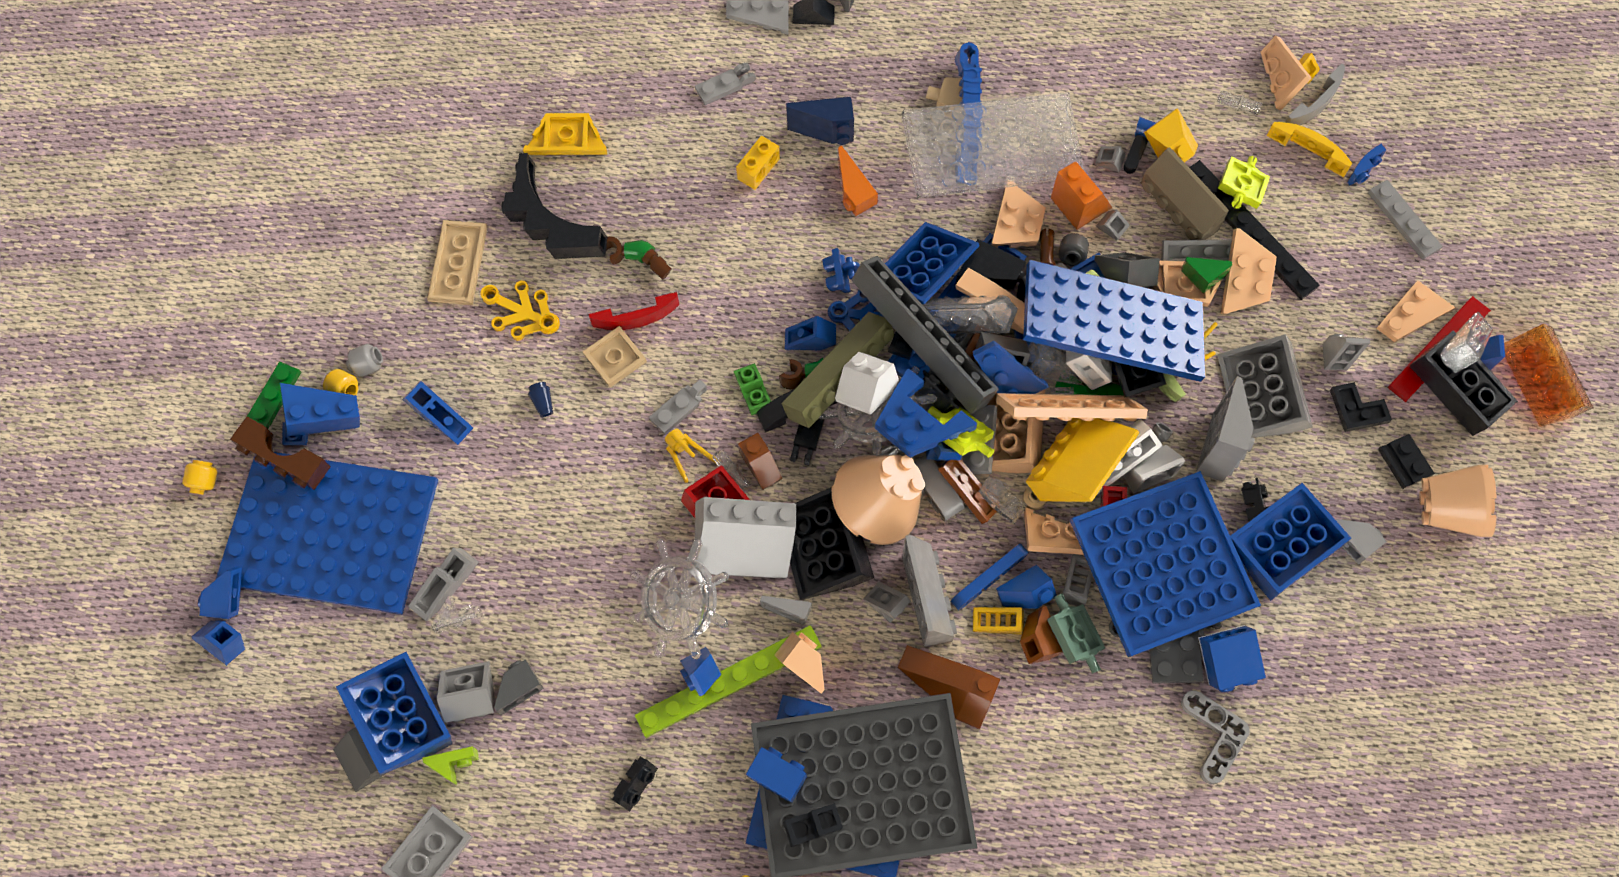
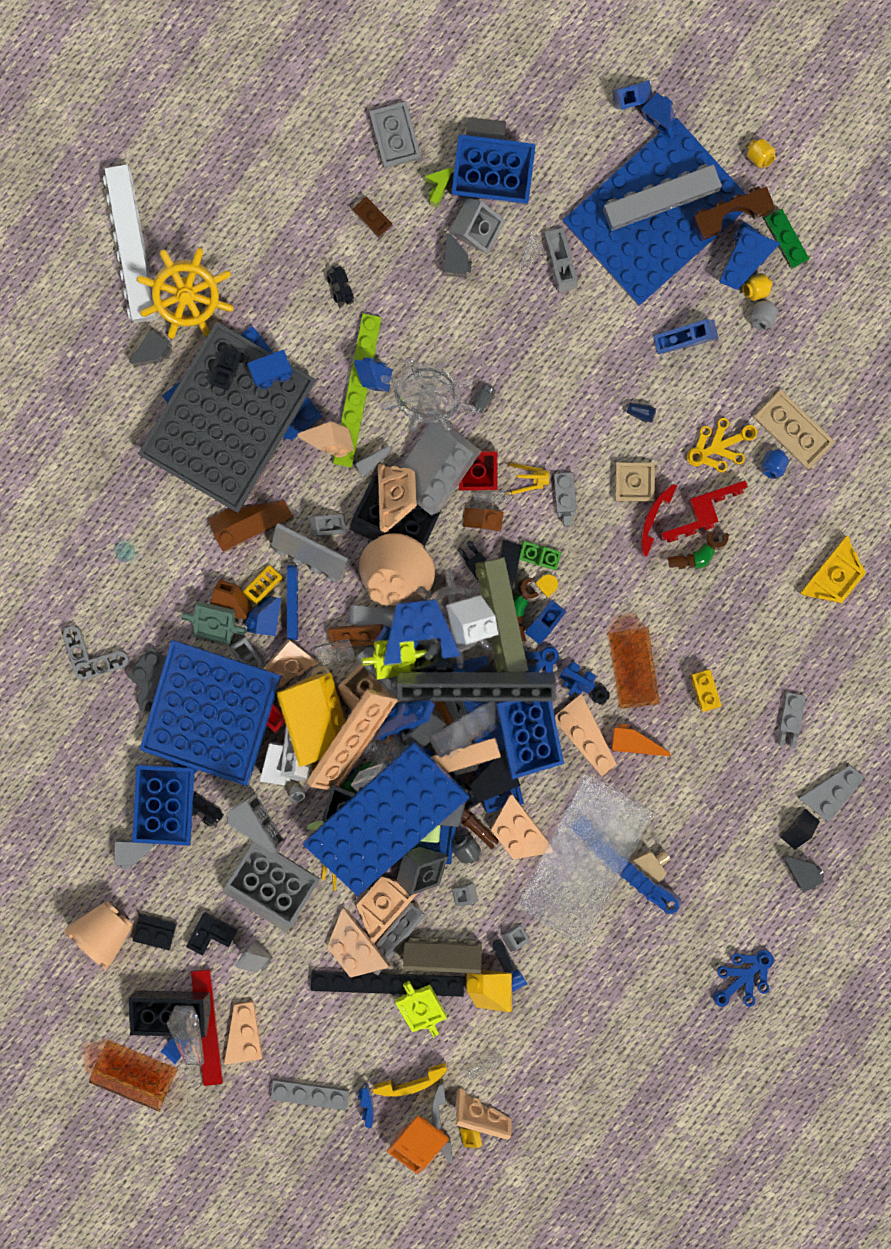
camera: 130 degrees right, 20 degrees up
(310, 530) = (662, 197): none -> light grey brick
(502, 252) = (774, 463): none -> blue head
(535, 807) = (372, 217): none -> reddish brown plate
(562, 237) = (777, 505): black arch -> none
(595, 279) = (703, 511): none -> red bracket
(639, 551) = (484, 397): none -> dark grey cone
(774, 361) = (547, 584): none -> yellow tile
(787, 232) = (634, 668): none -> clear orange slope
(803, 553) = (396, 494): none -> light nougat wing
(823, 119) = (697, 763): dark blue slope -> none
(841, 240) = (605, 695): none -> black plate
(883, 229) = (583, 731): none -> light nougat wing
(1078, 196) = (499, 888): orange slope -> none
(1085, 786) = (125, 552): none -> clear light blue tile
(1205, 272) = (375, 918): green slope -> none
(1232, 658) = (124, 703): blue piece -> none
(1358, 97) = (417, 1144): none -> orange slope

